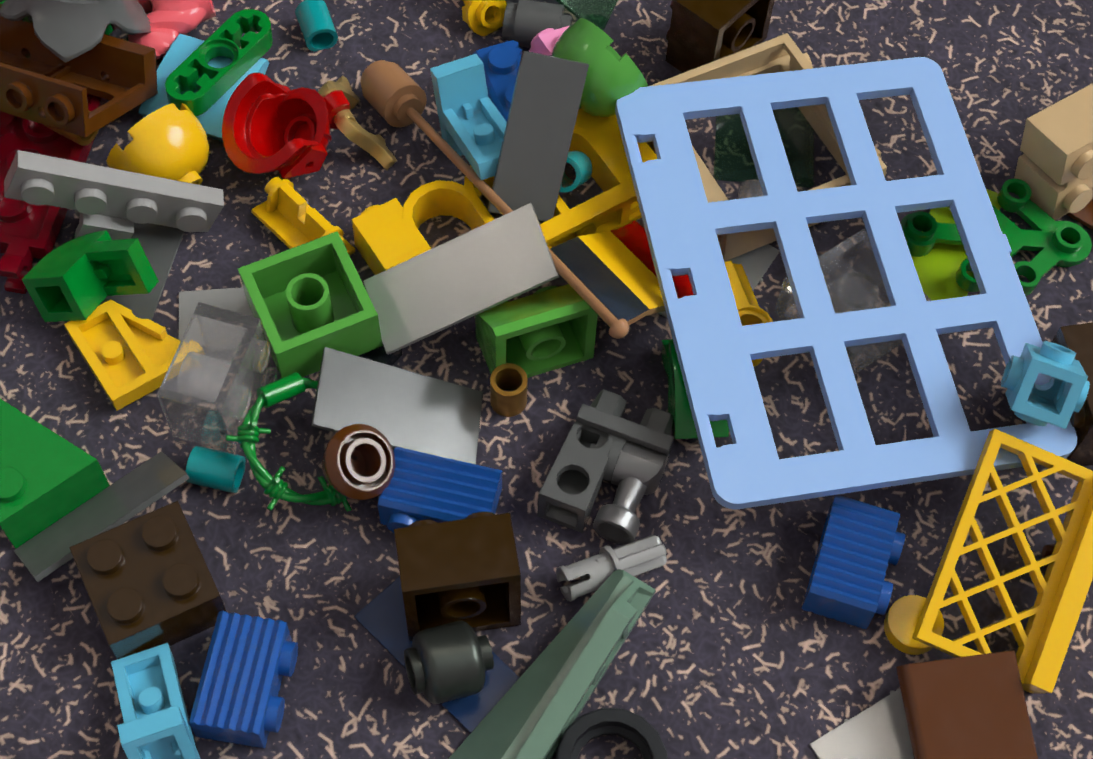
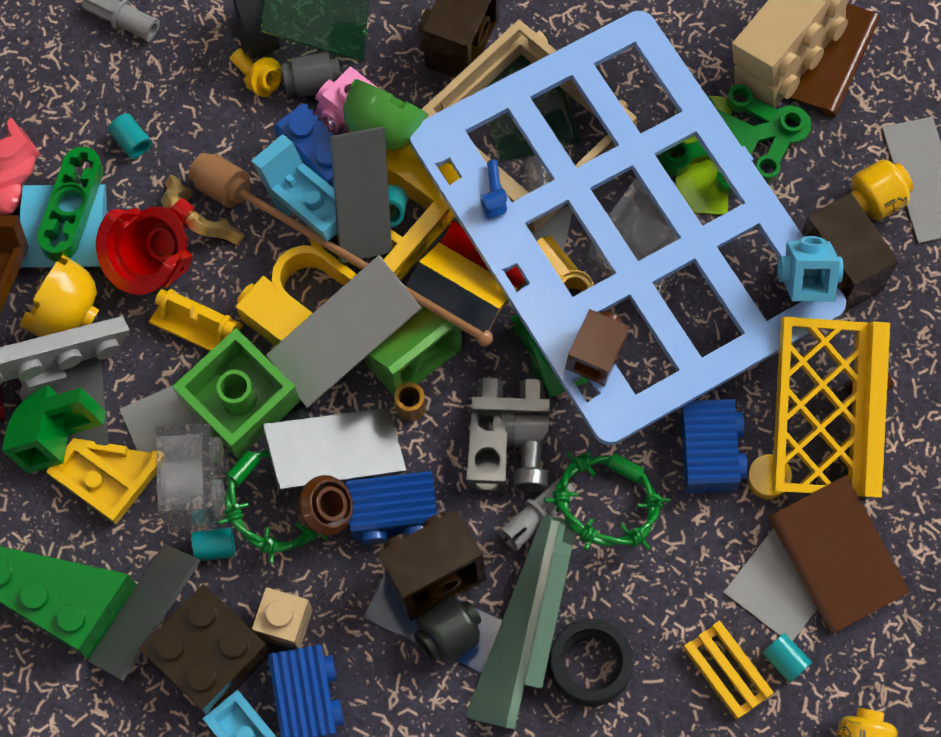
camera: 15 degrees left, 10 degrees up
(255, 577) = (282, 619): none -> tan brick
(688, 191) = (494, 202): none -> blue hand
(735, 550) = (623, 467): none -> green piece
(751, 384) = (597, 346): none -> reddish brown brick

